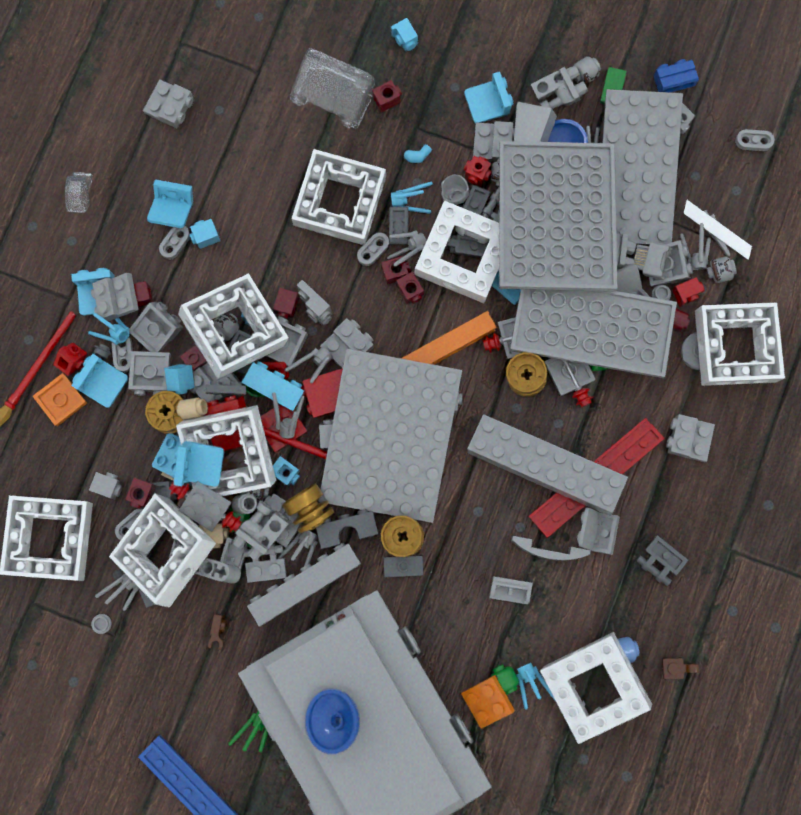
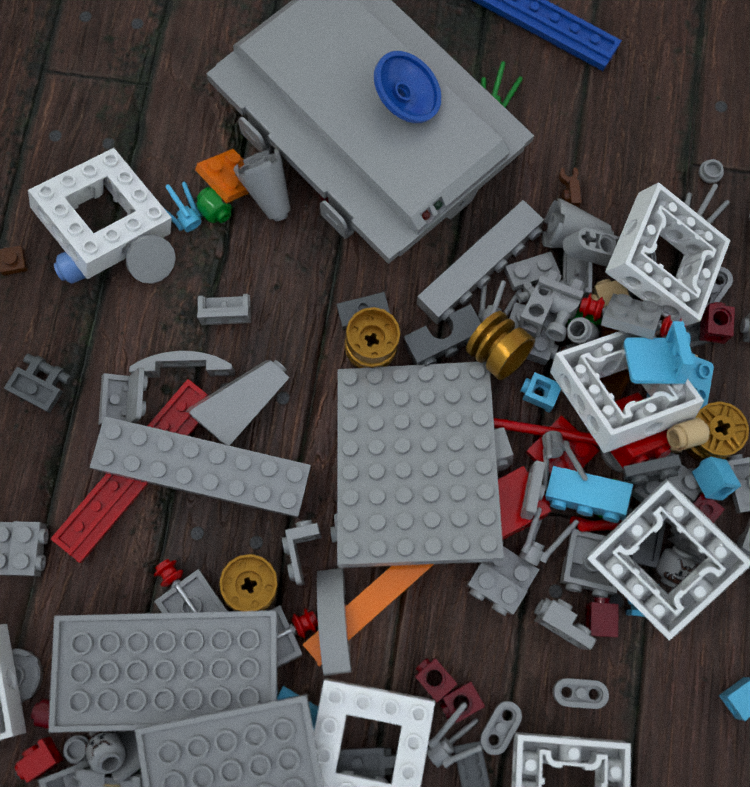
camera: 165 degrees right, 5 degrees down
(225, 596) = (566, 219): none -> light grey cone
(311, 395) = (534, 490): none -> light grey plate
(314, 260) = (579, 693): none -> light grey plate
(460, 686) = (266, 183): none -> light grey cone
(472, 338) = (333, 622): none -> light grey slope
(482, 402) = (303, 532): none -> light grey bracket
(512, 510) = (238, 402): none -> light grey slope
(562, 640) = (150, 258): none -> light grey tile
(641, 283) = (105, 752): none -> light grey head

